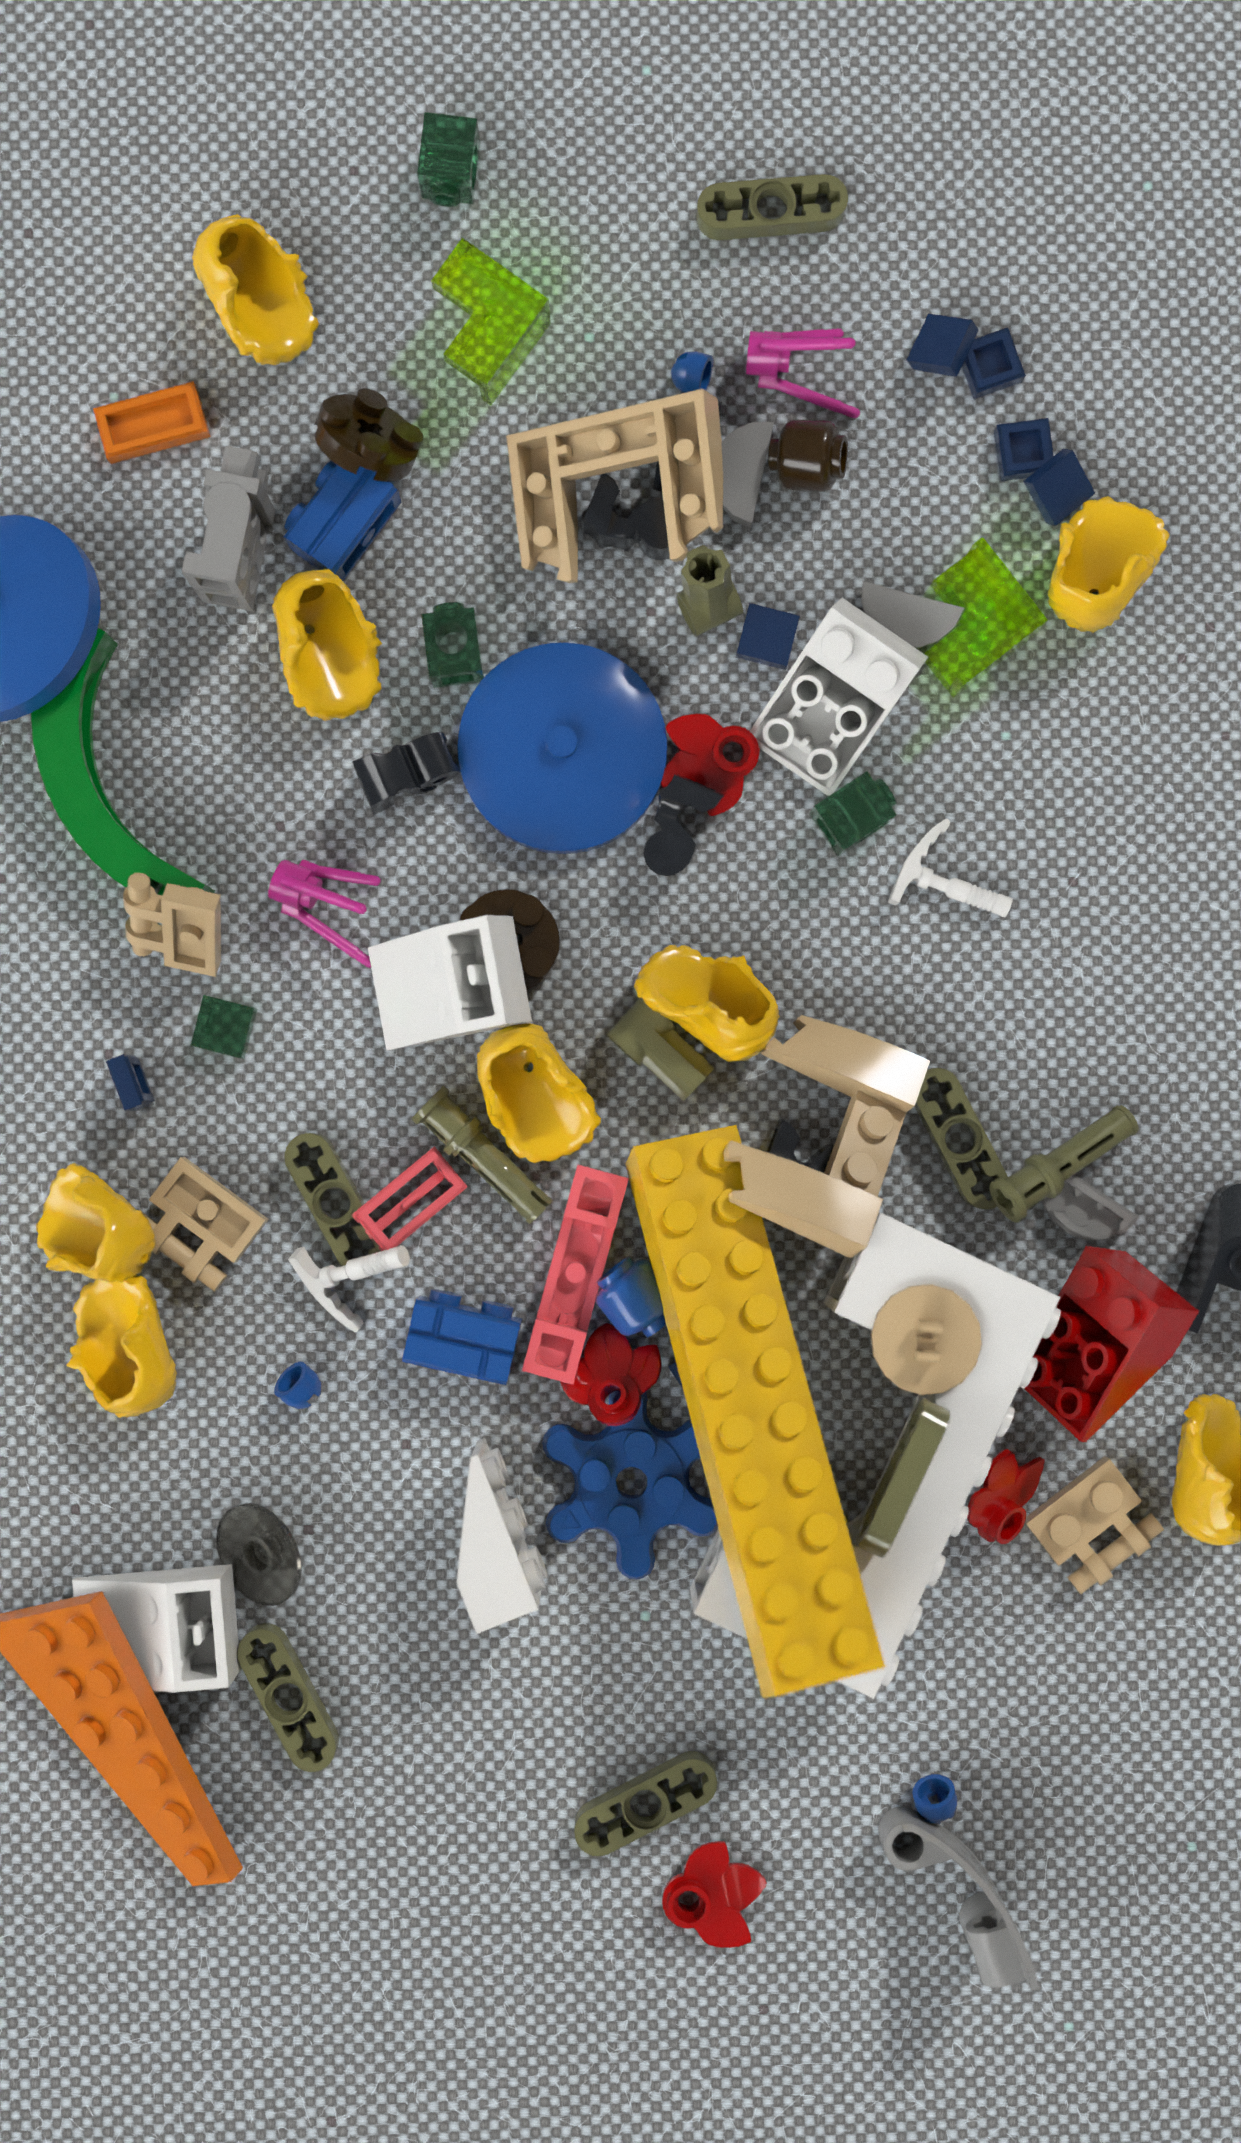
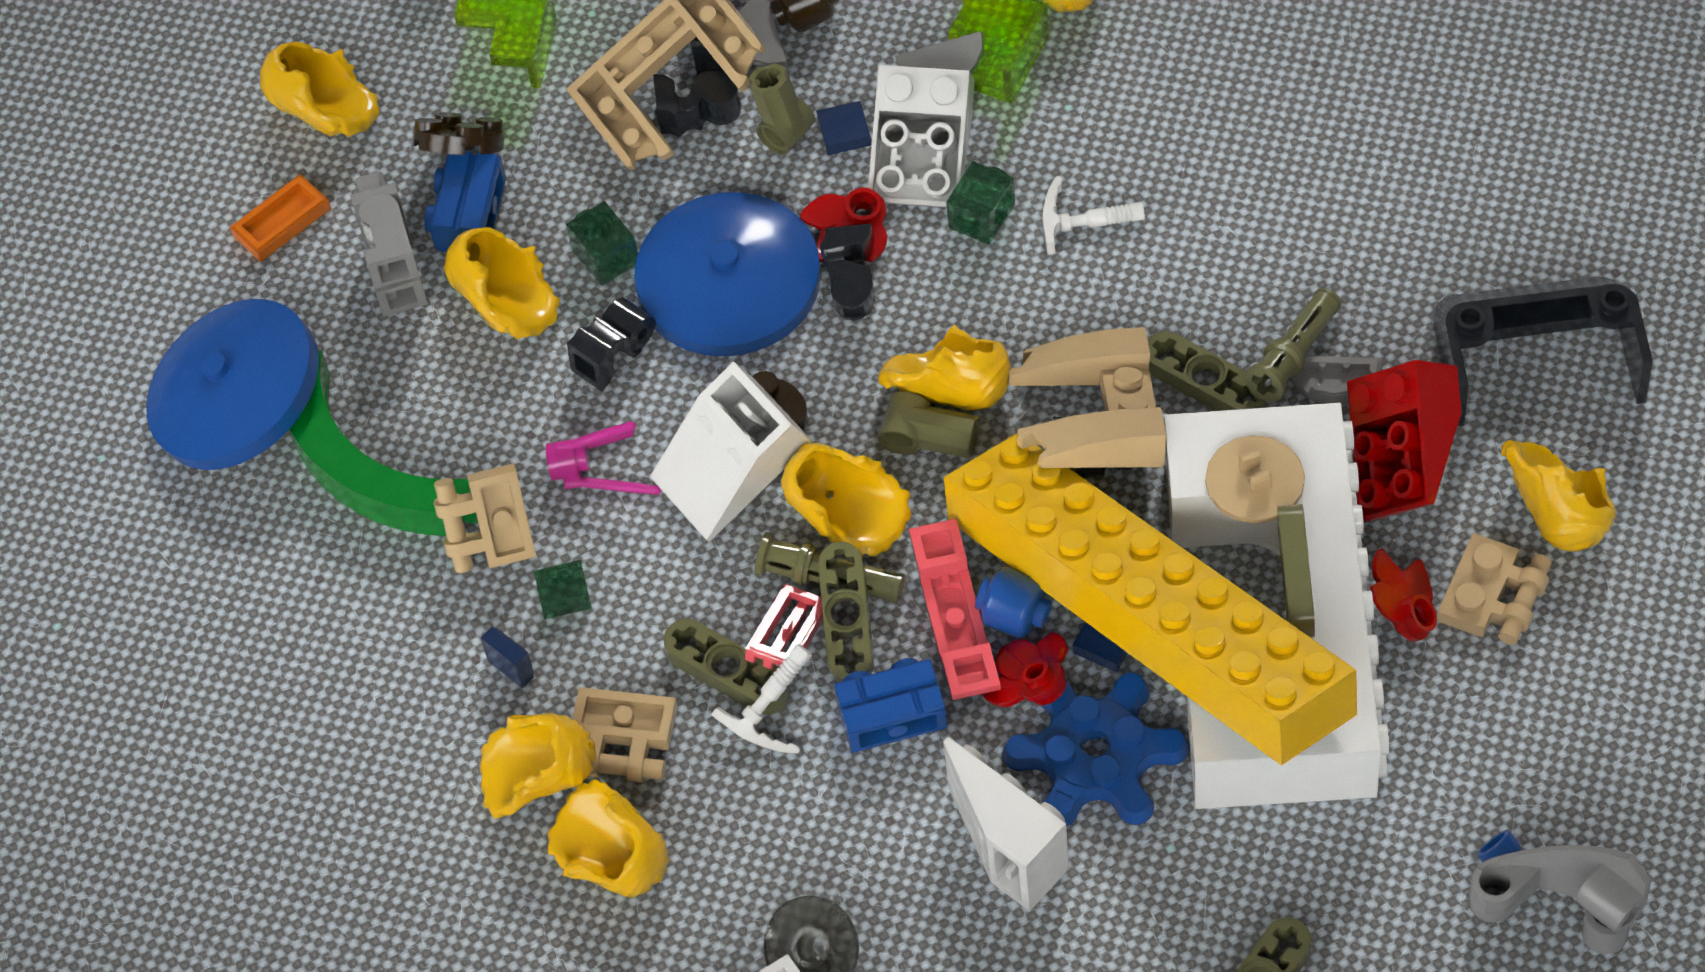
camera: 15 degrees left, 30 degrees down
(298, 1385) = (774, 812): blue hinge -> none
(444, 1247) = (829, 579): none -> olive beam

